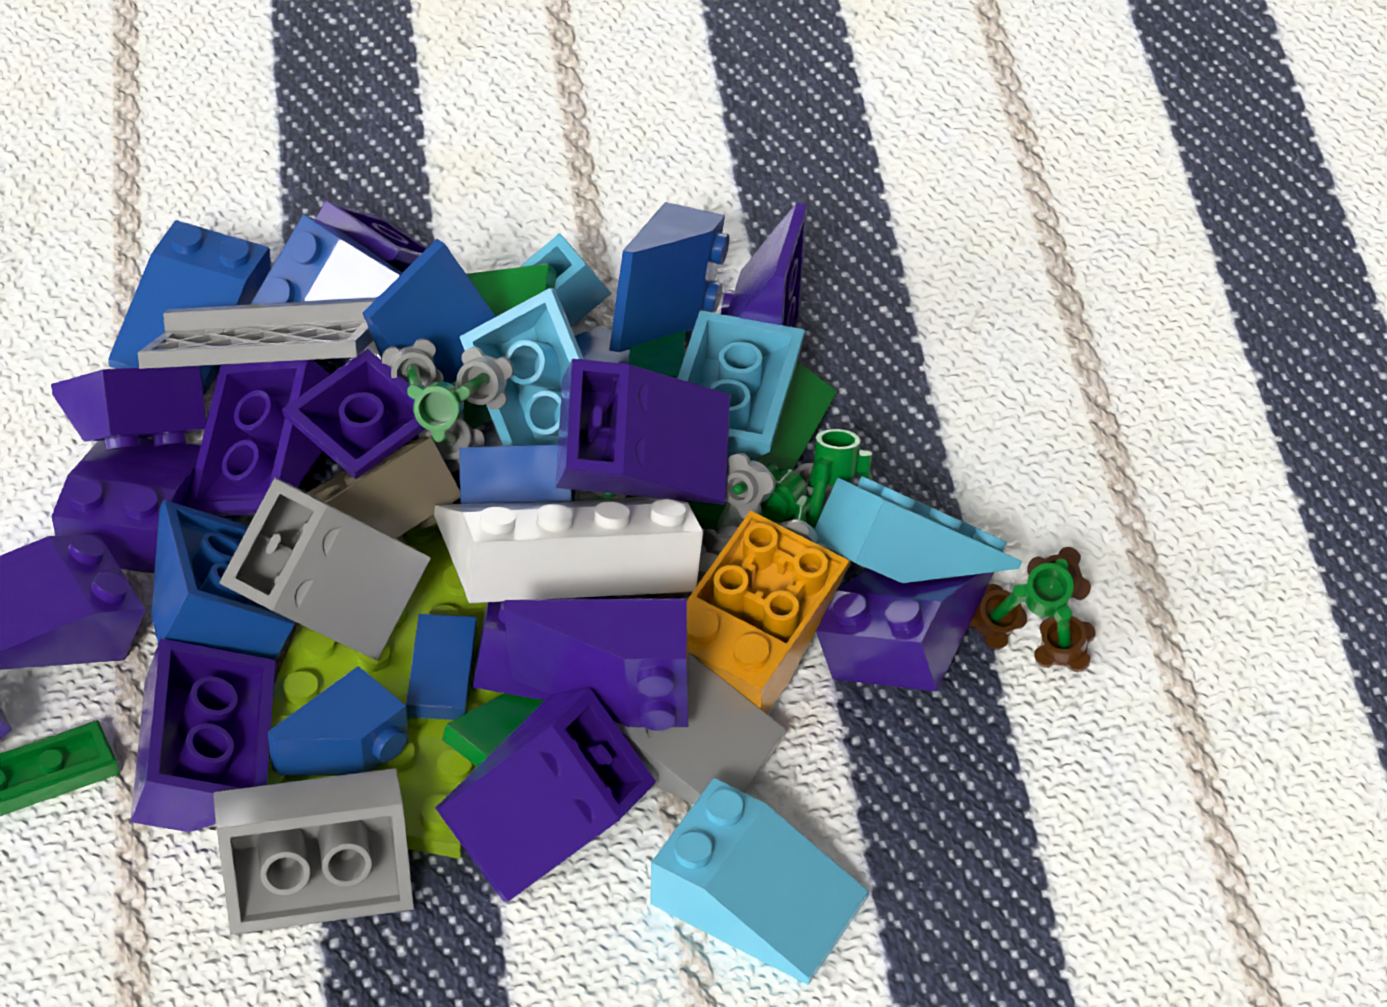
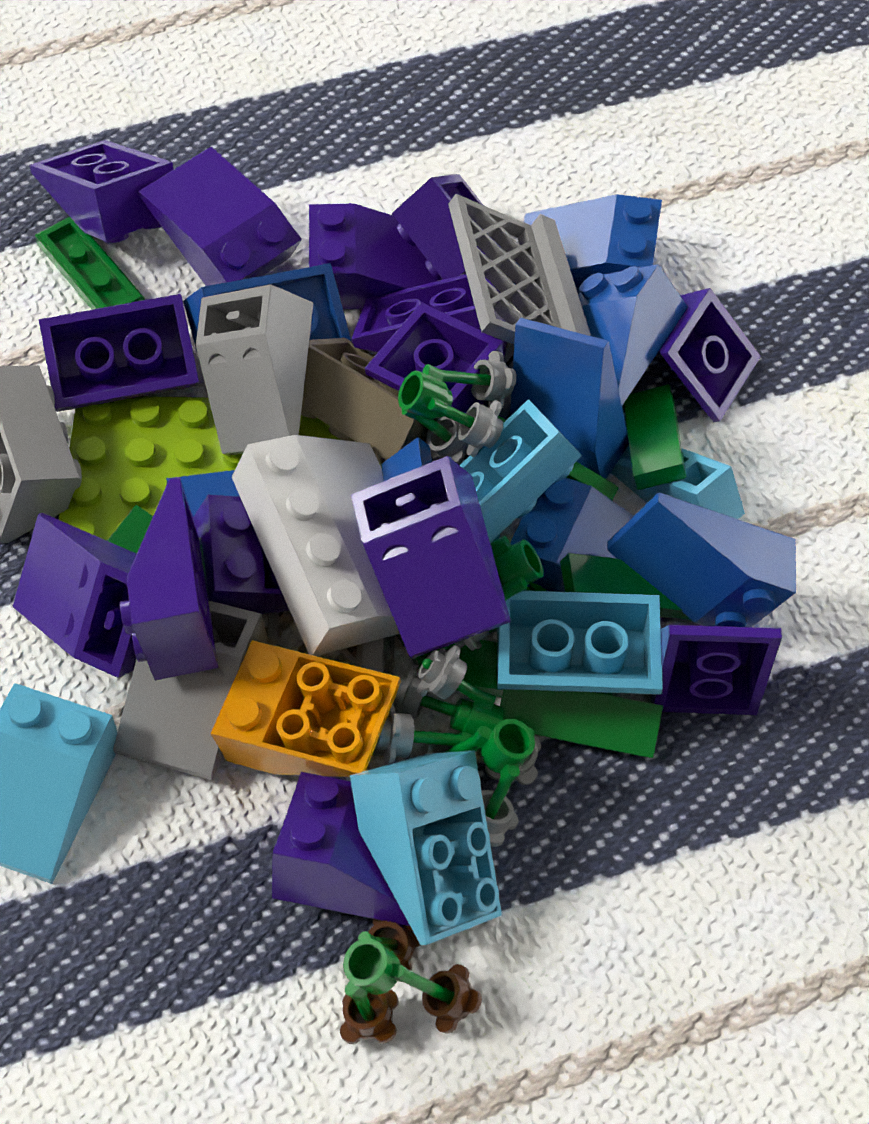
camera: 80 degrees right, 10 degrees up
(341, 730) = (132, 441): blue slope -> none

